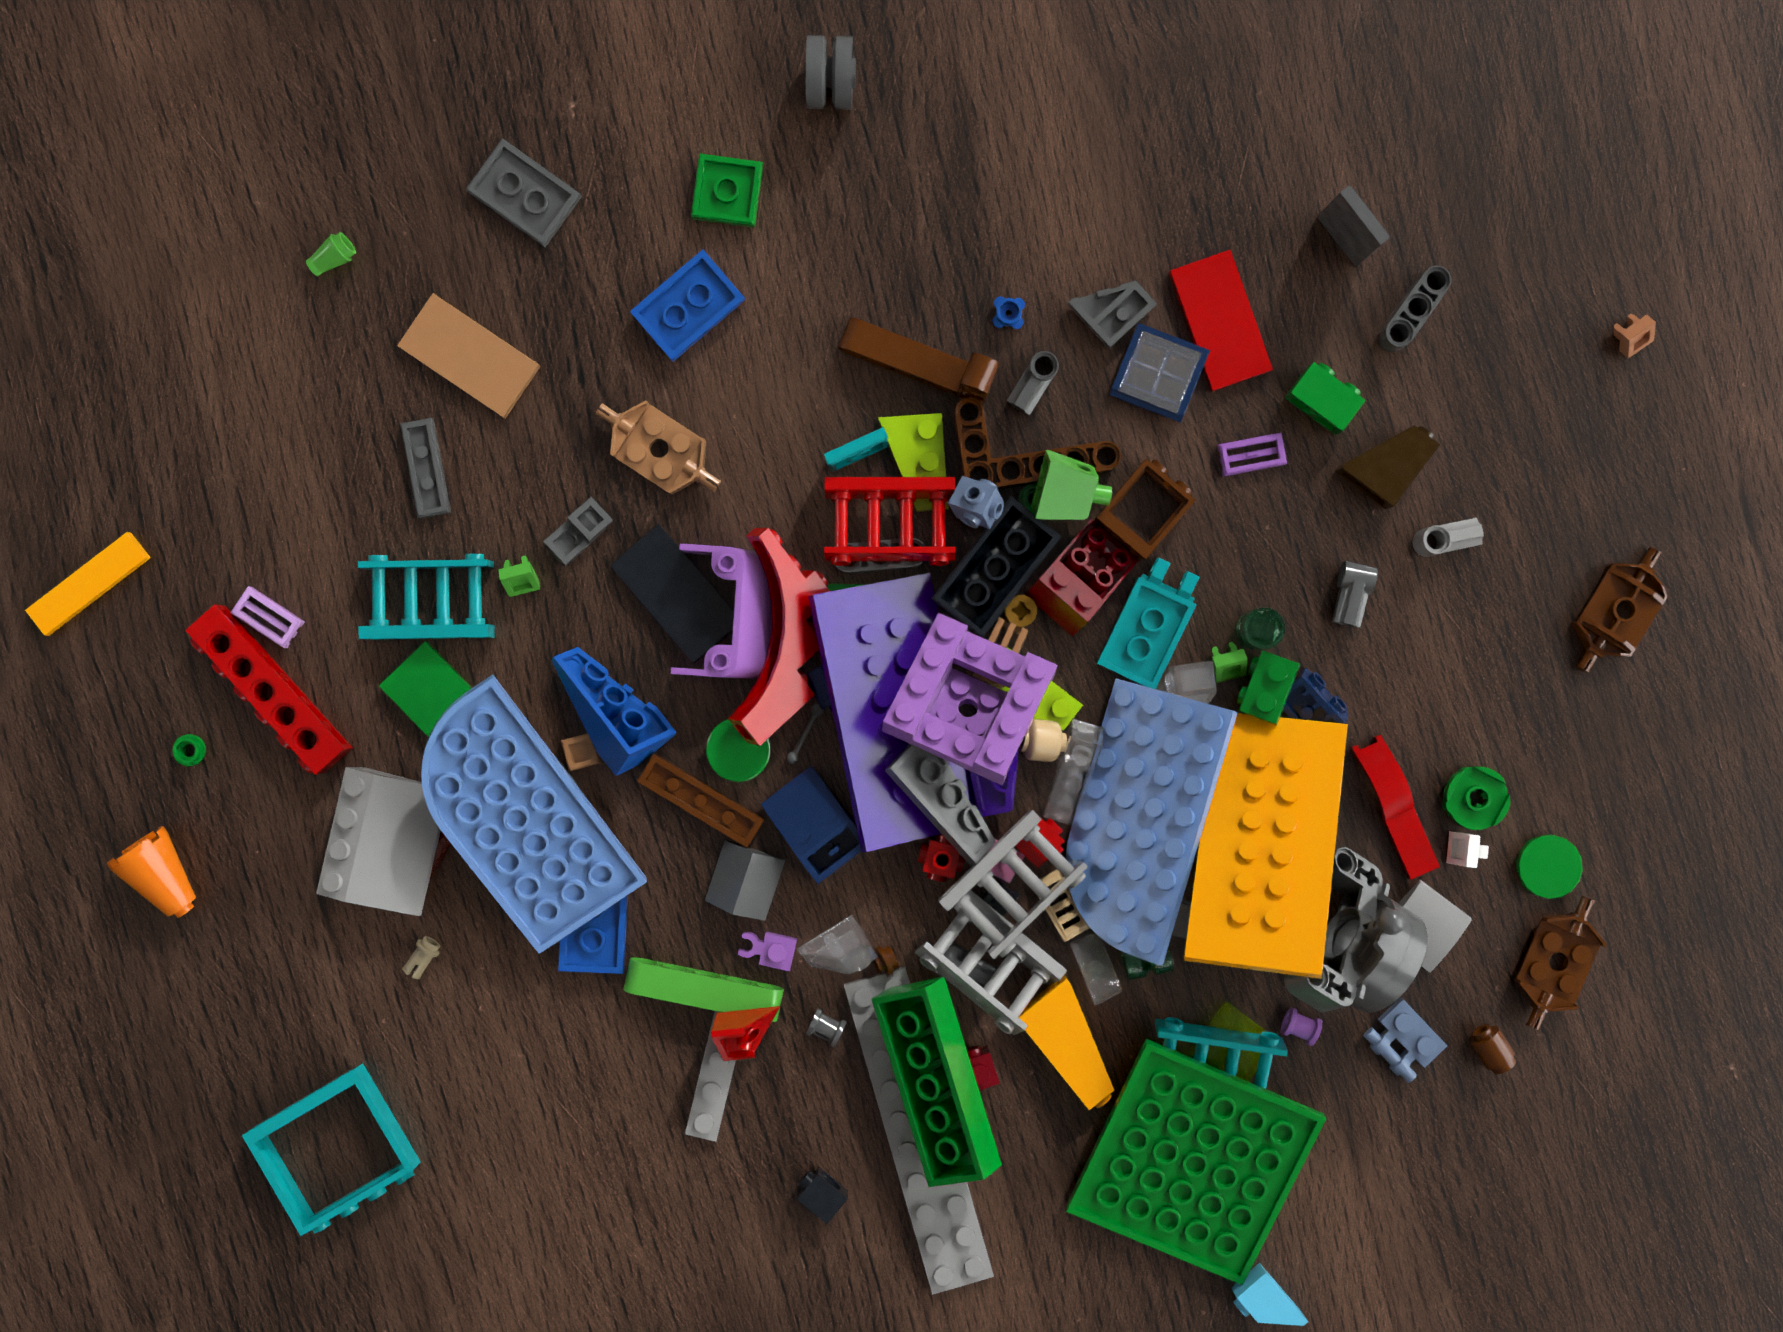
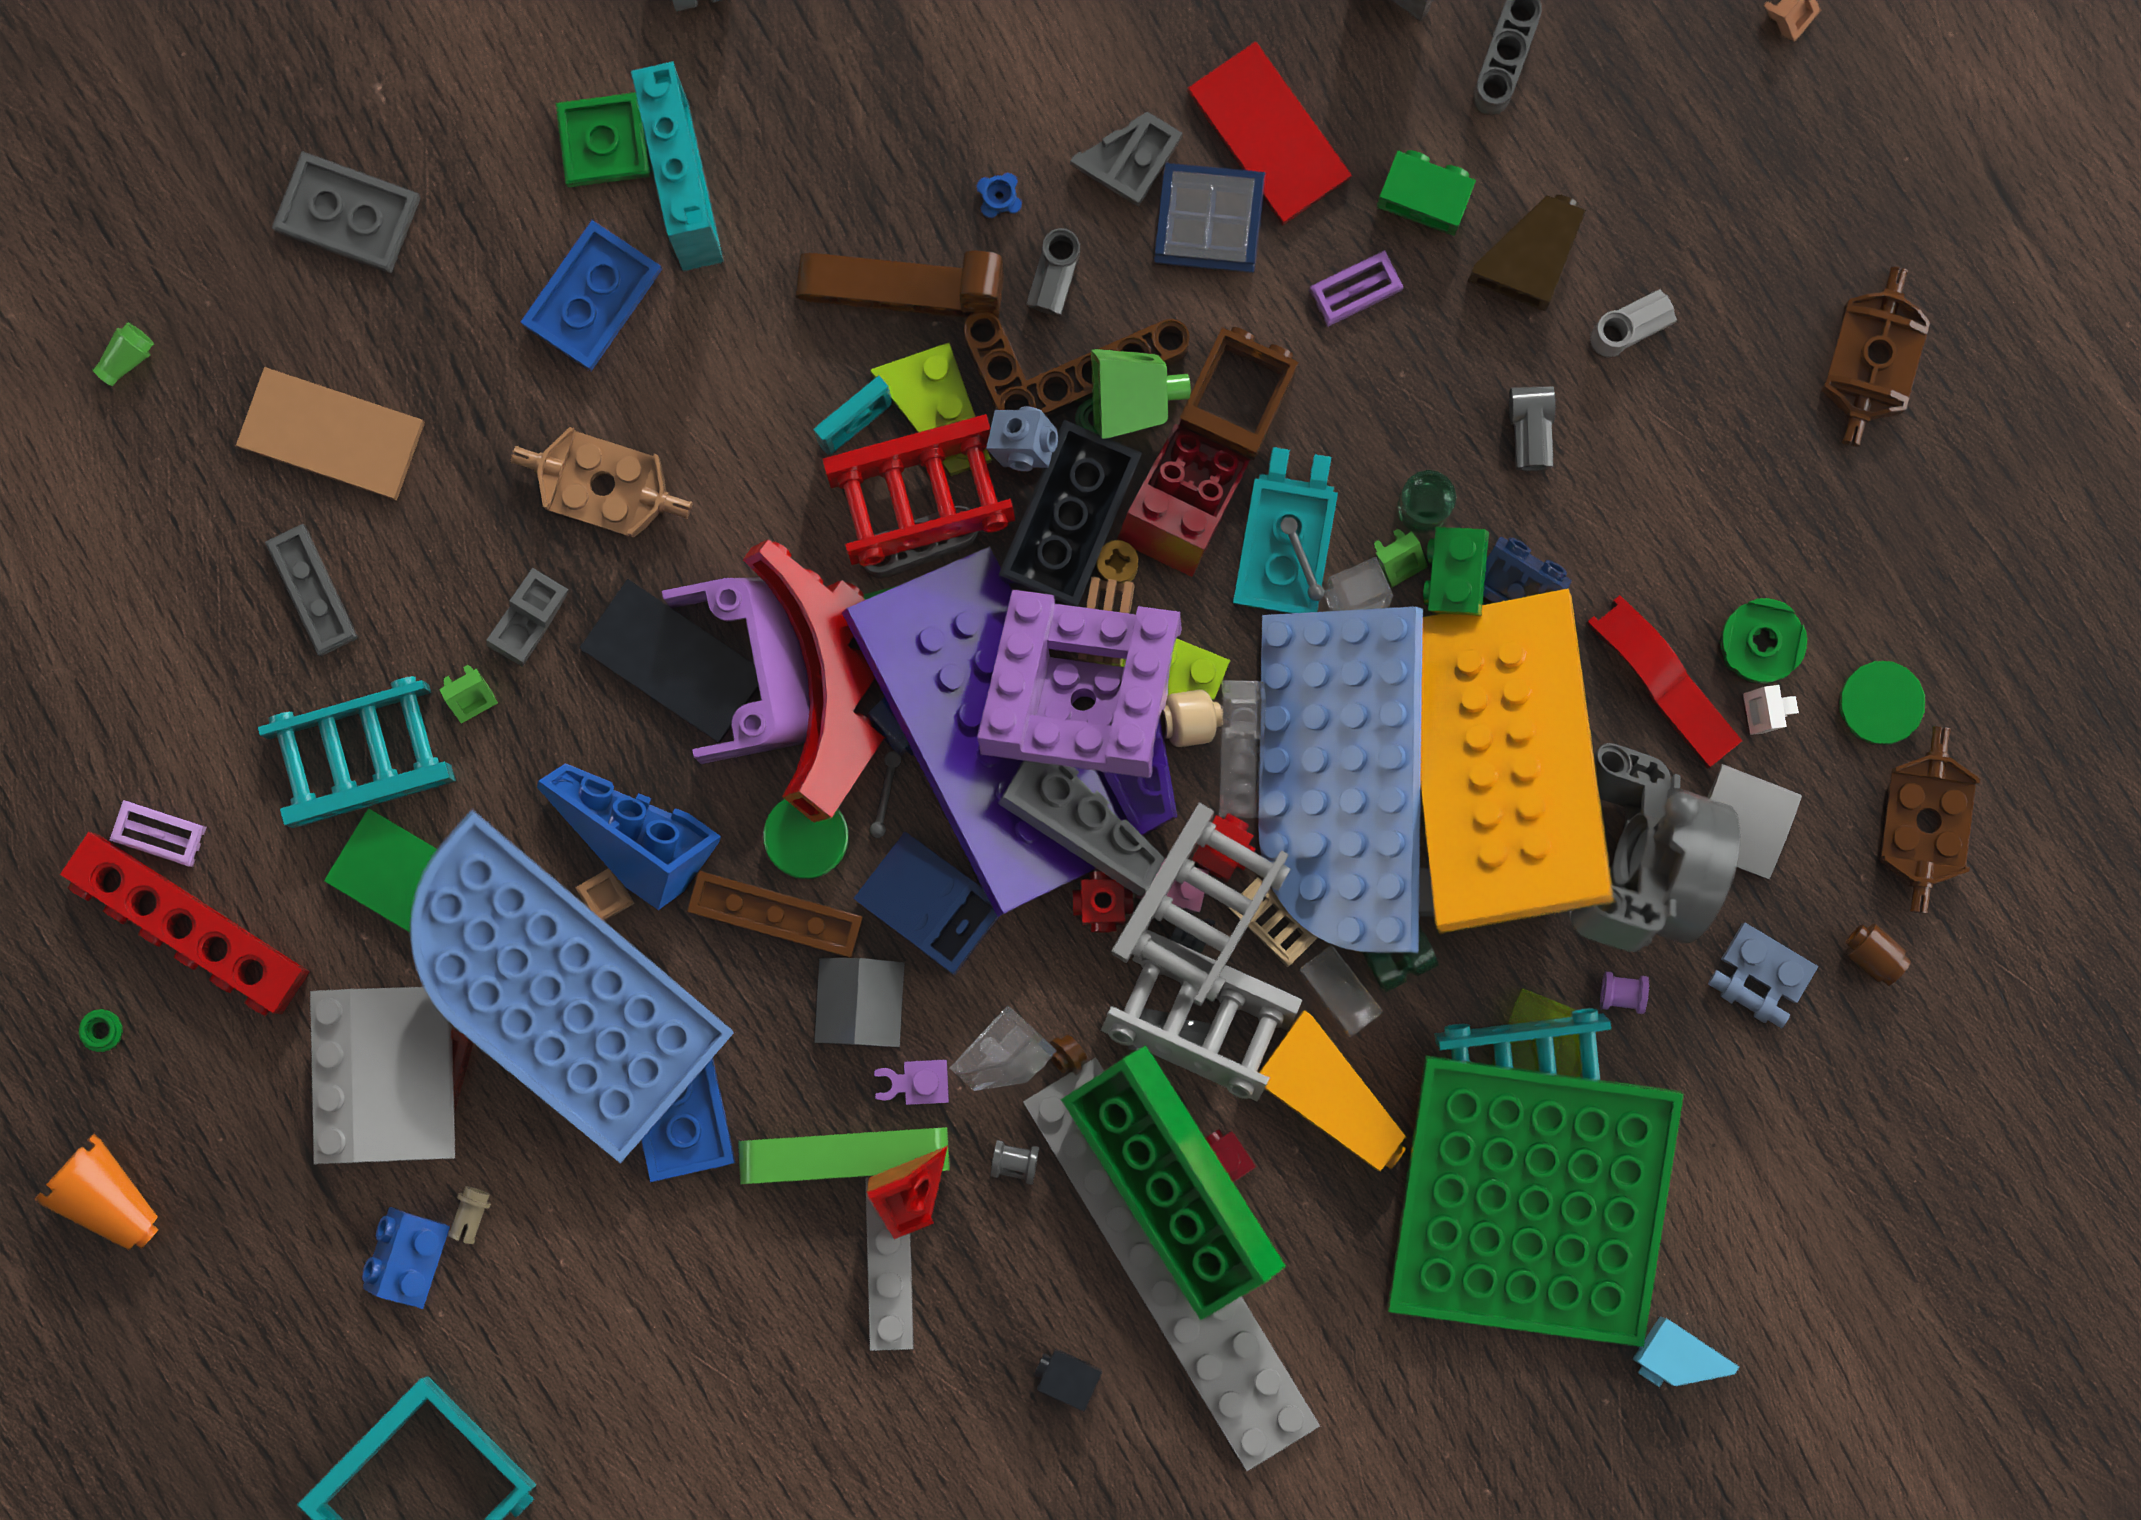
camera: 15 degrees left, 5 degrees down
(366, 976) = (404, 1257): none -> blue bracket
(775, 226) = (677, 166): none -> teal window
(1155, 619) = (1289, 527): none -> dark grey hinge

